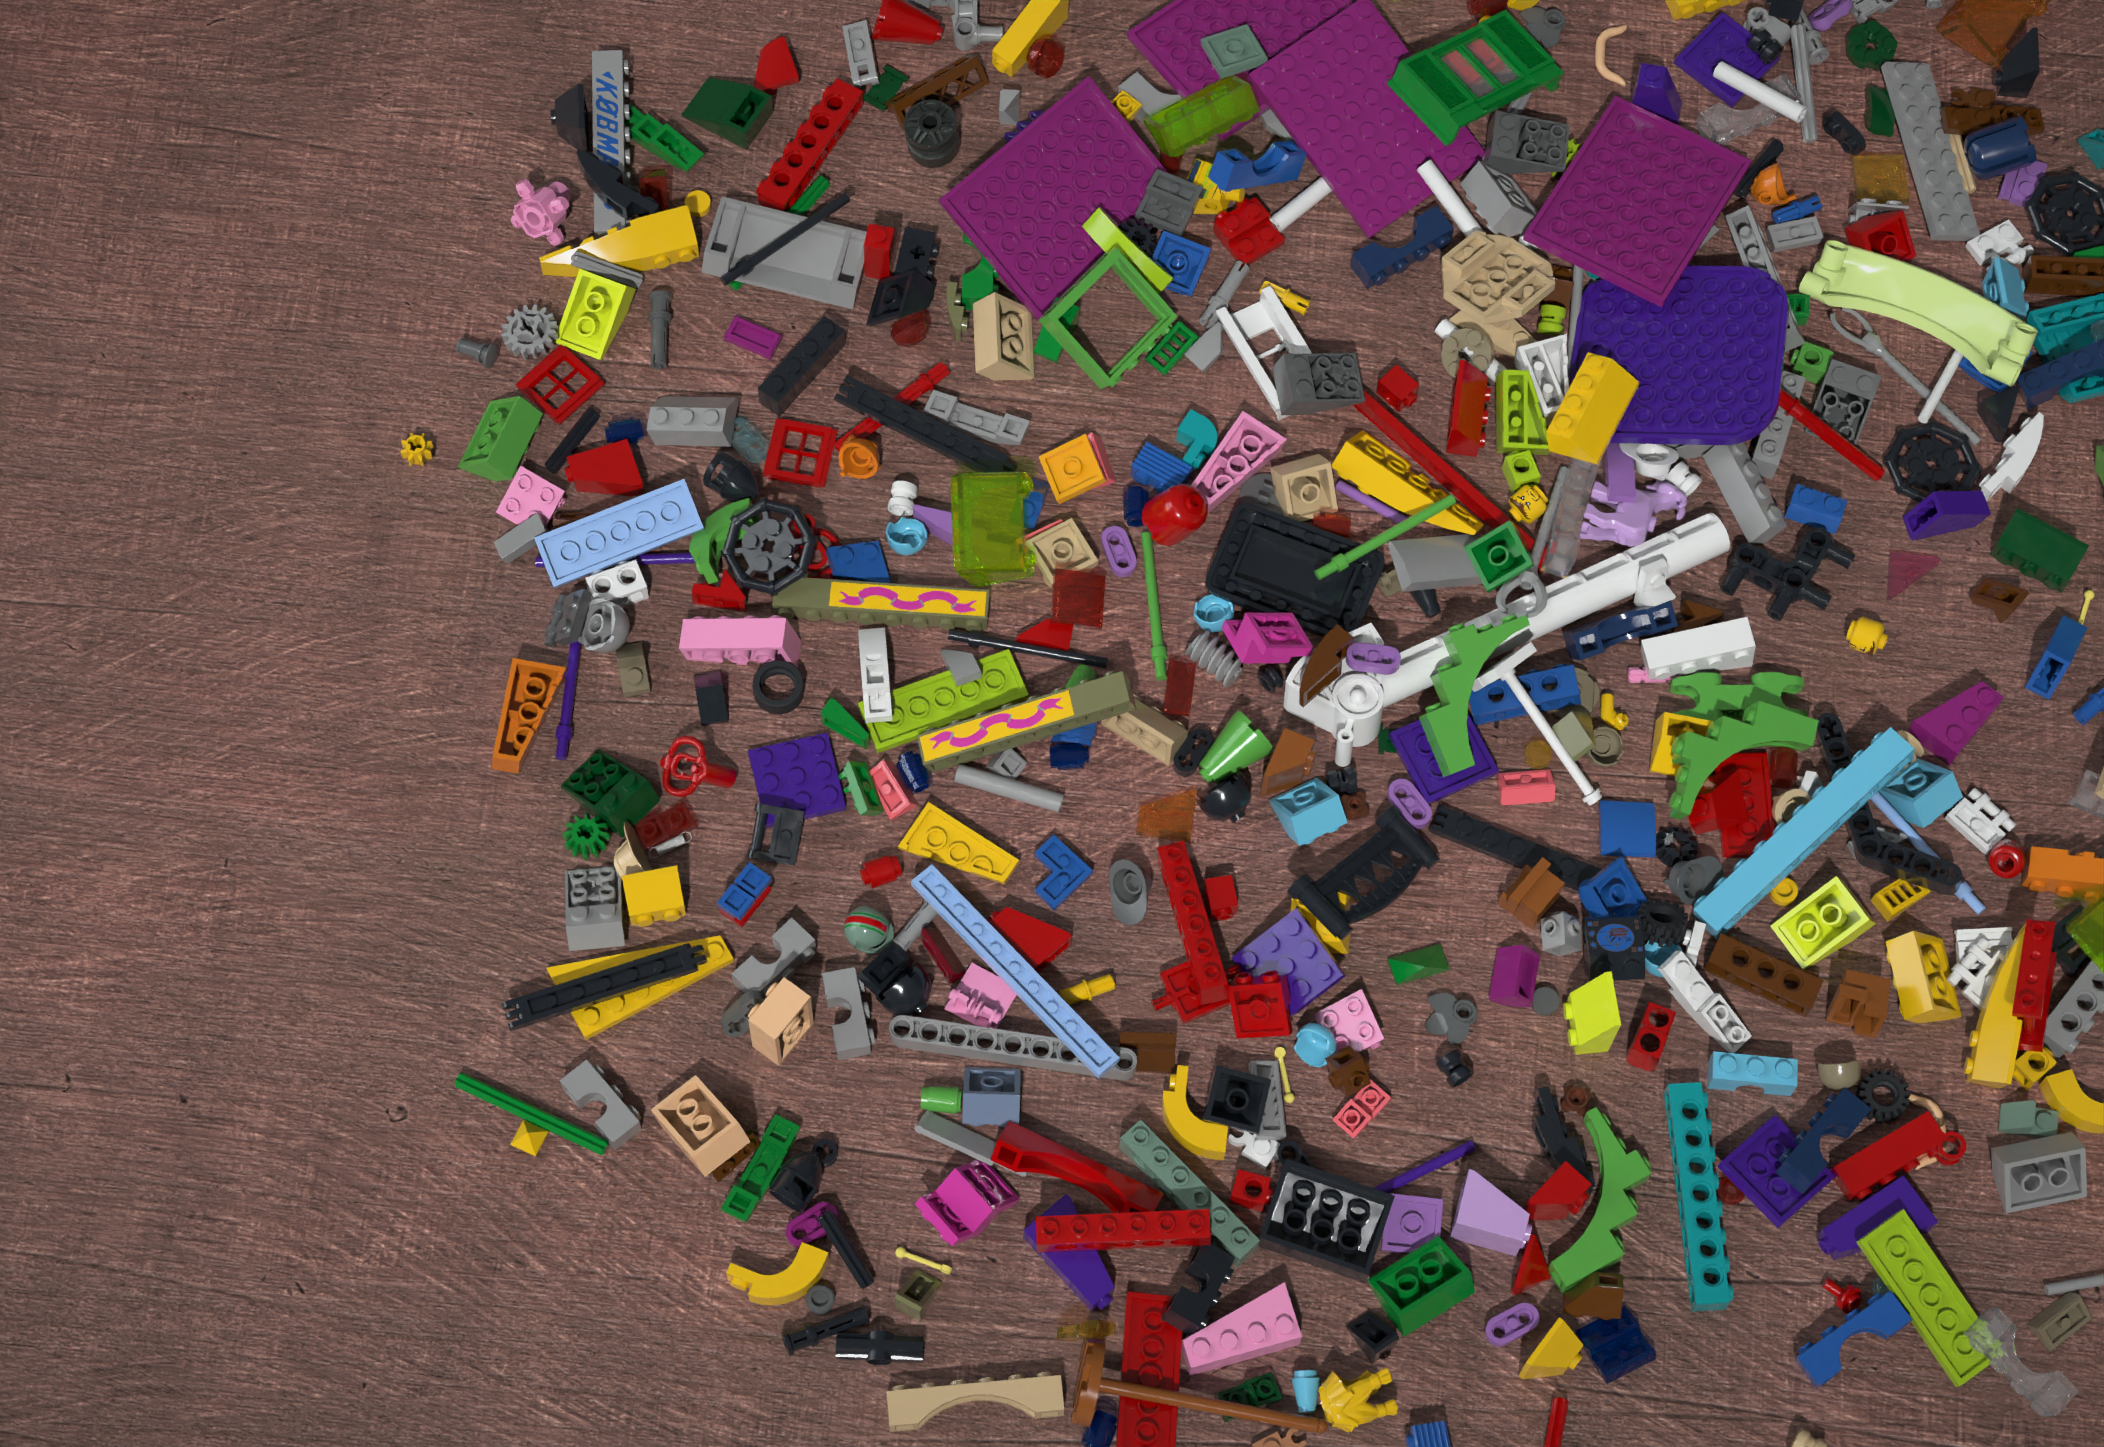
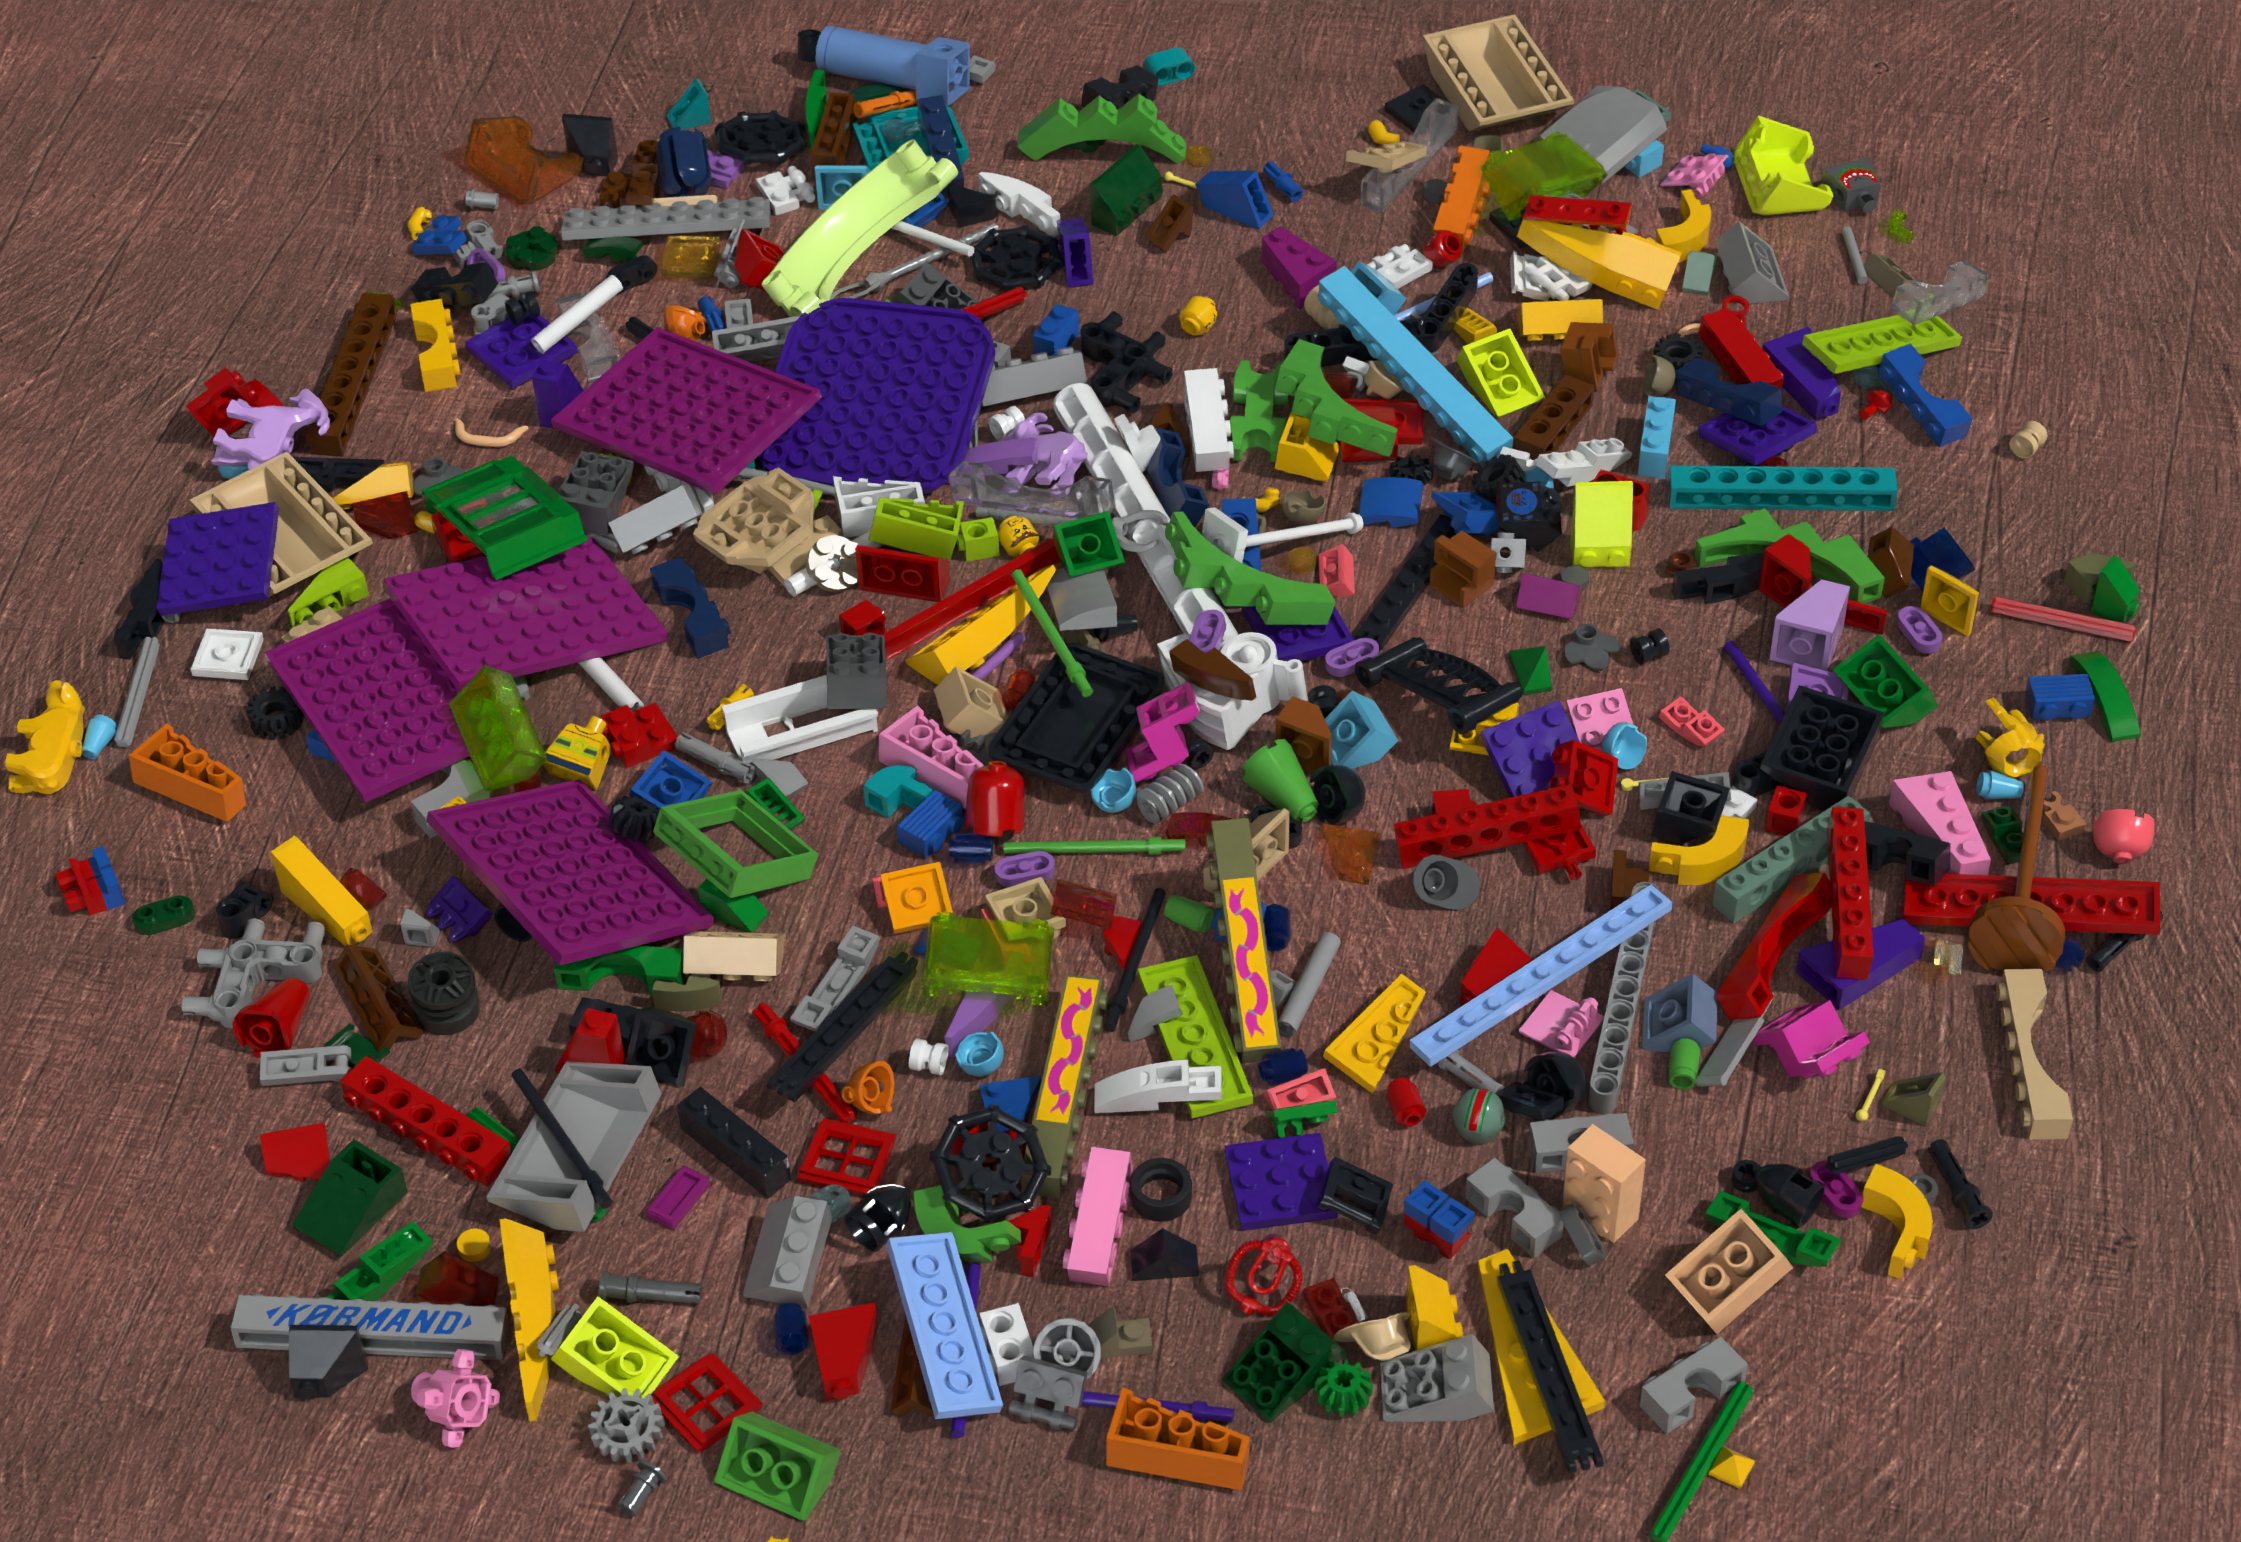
camera: 80 degrees left, 20 degrees down
(520, 538) = (925, 1443): light grey slope -> none
(530, 495) = (872, 1434): bright pink hinge -> none
(572, 440) = (790, 1390): black axle -> none
(608, 185) = (445, 1312): black slope -> none
(841, 722) = (1213, 1128): green slope -> none
(879, 1347) = (1977, 1134): black piece -> none
(942, 954) = (1510, 1056): dark red slope -> none
(1067, 872) = (1416, 938): blue plate -> none
(1087, 989) = (1554, 930): yellow axle -> none
(1109, 235) = (636, 826): lime slope -> none
(1169, 203) = (595, 782): dark grey slope -> none
(1234, 51) = (421, 697): sand green plate -> none
(1236, 171) = (572, 697): blue arch -> none
(1348, 1071) = (1656, 720): reddish brown brick -> none
(1373, 1336) = (1941, 727): black slope -> none
(1448, 198) = (647, 558): white piece -> none
(1576, 733) = (1293, 513): slope -> none
(1591, 409) = (930, 460): yellow slope -> none
(1651, 459) = (988, 429): white piece -> none
(1803, 82) = (555, 291): light grey axle -> none
(1905, 570) = (1128, 289): clear pink tile -> none

